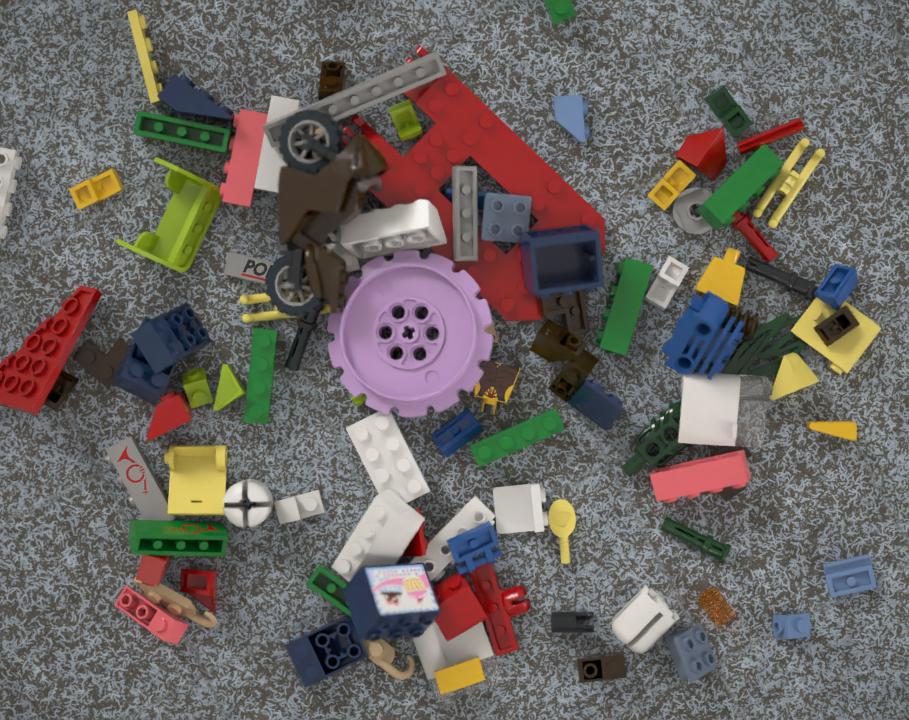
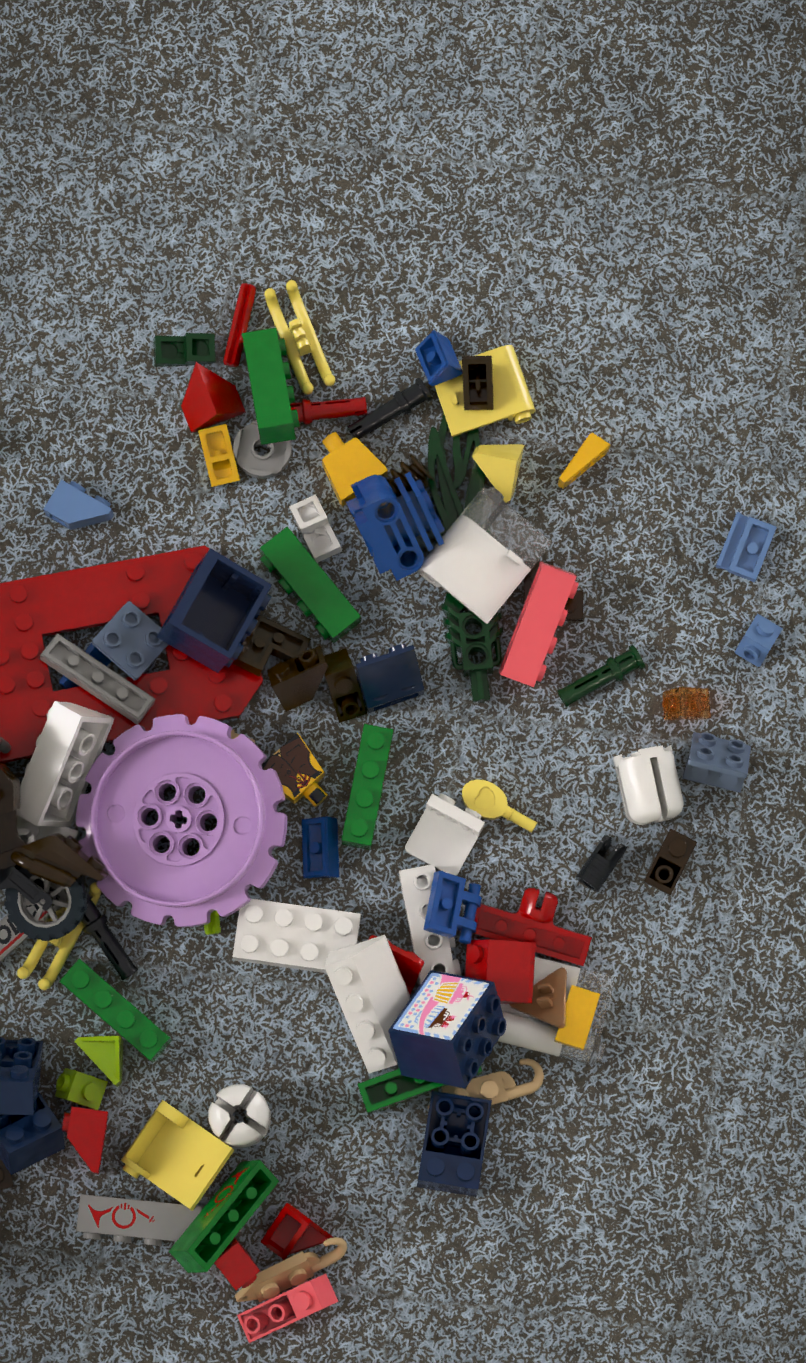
camera: 60 degrees left, 10 degrees down
(299, 507) = (282, 1068): white slope -> none
(458, 650) = (548, 999): none -> medium nougat piece

